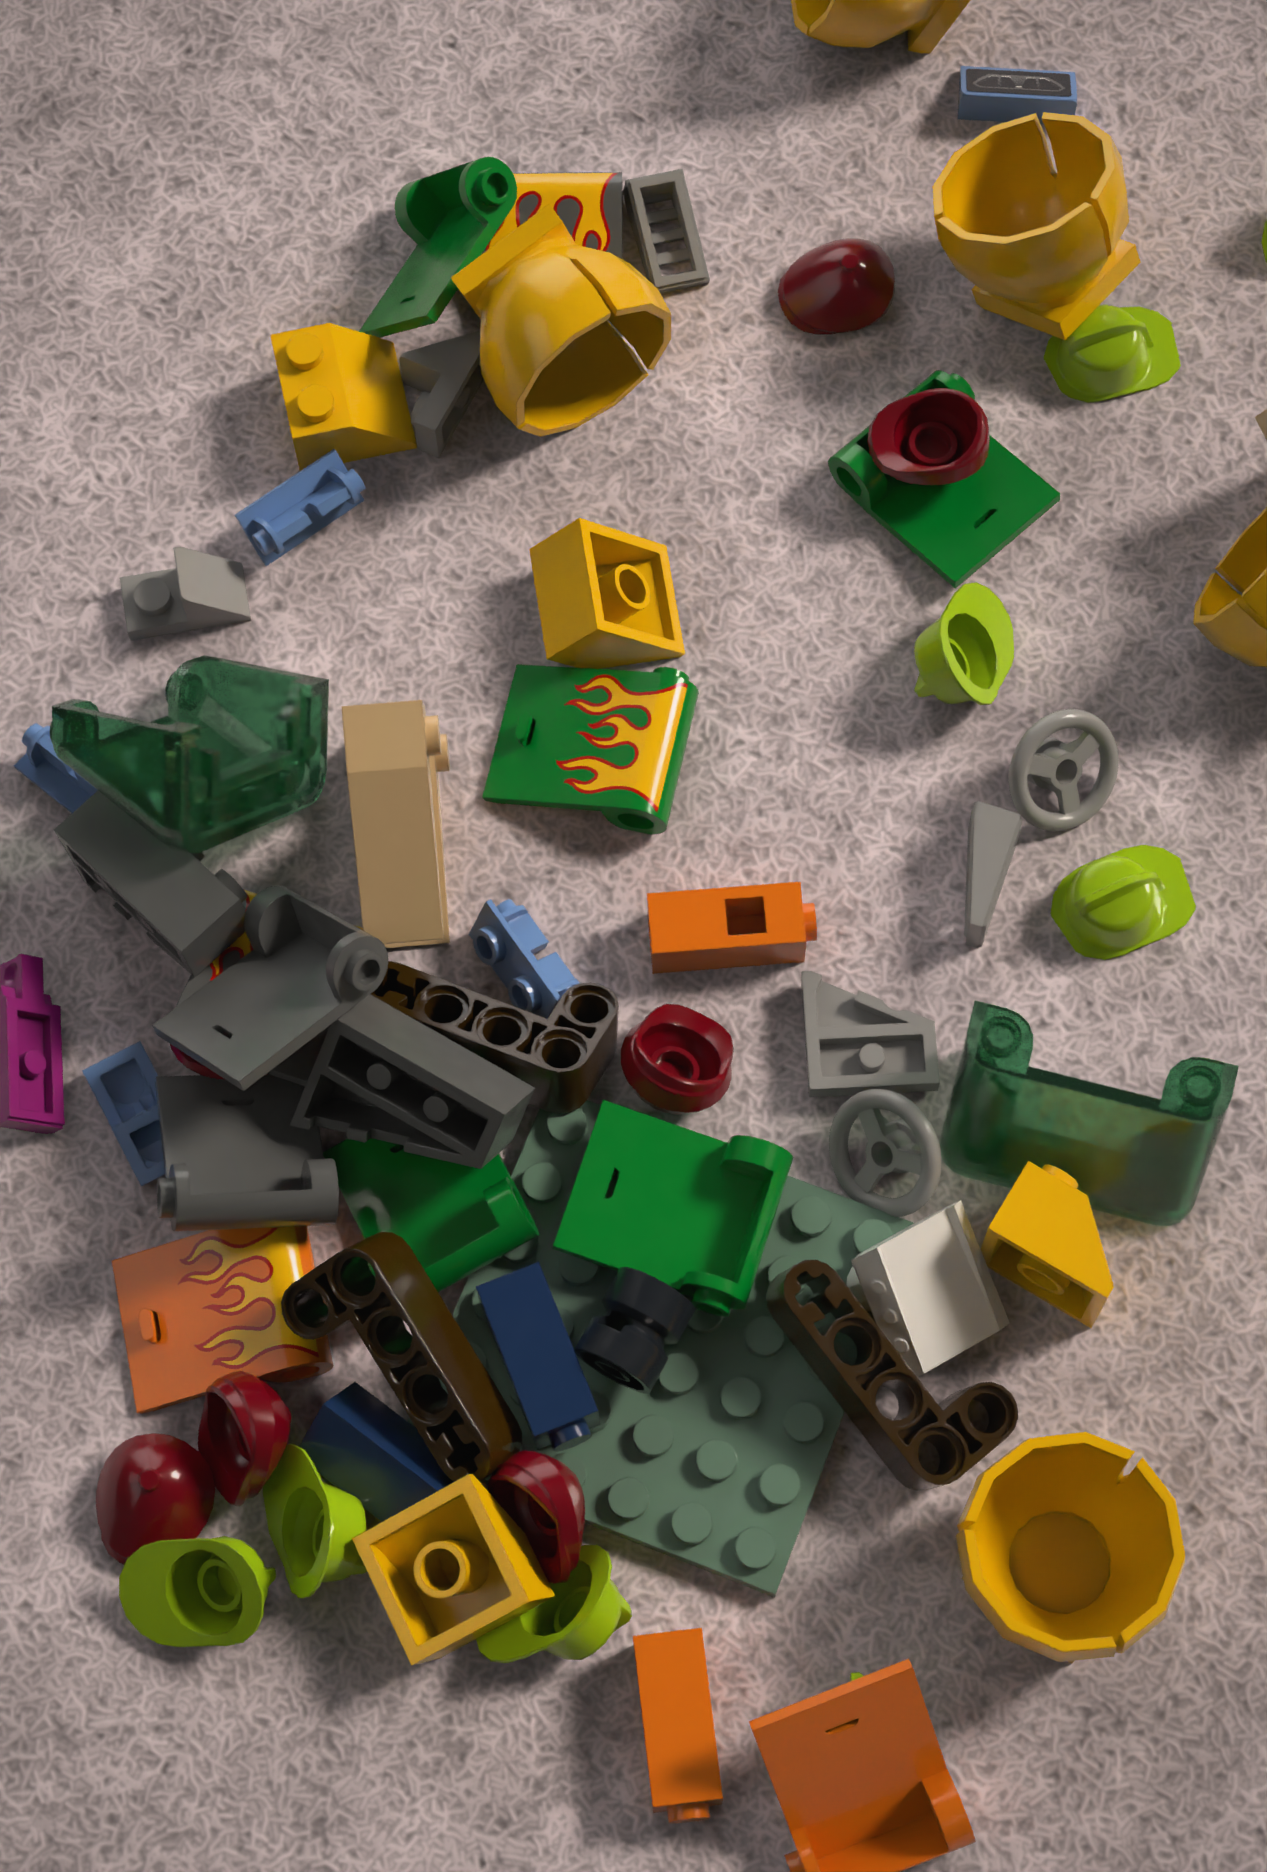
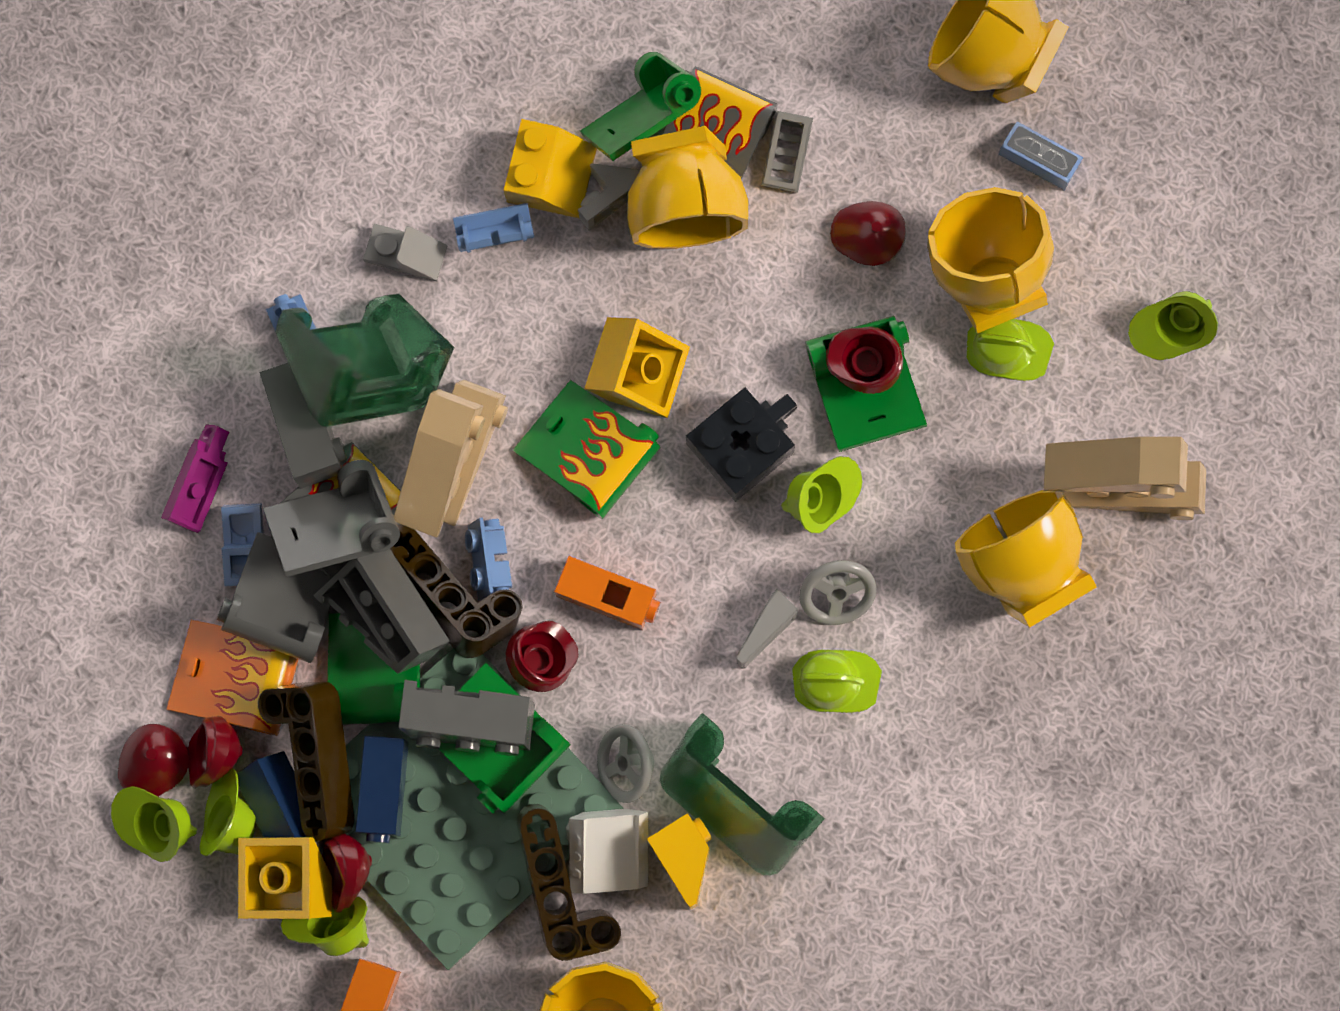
camera: 30 degrees right, 10 degrees up
(623, 1183) = (466, 719): none -> dark grey wedge
(637, 1325) = (438, 798): black wheel -> none
(816, 599) = (743, 419): none -> black hinge
(863, 1043) = (647, 694): light grey wing -> none

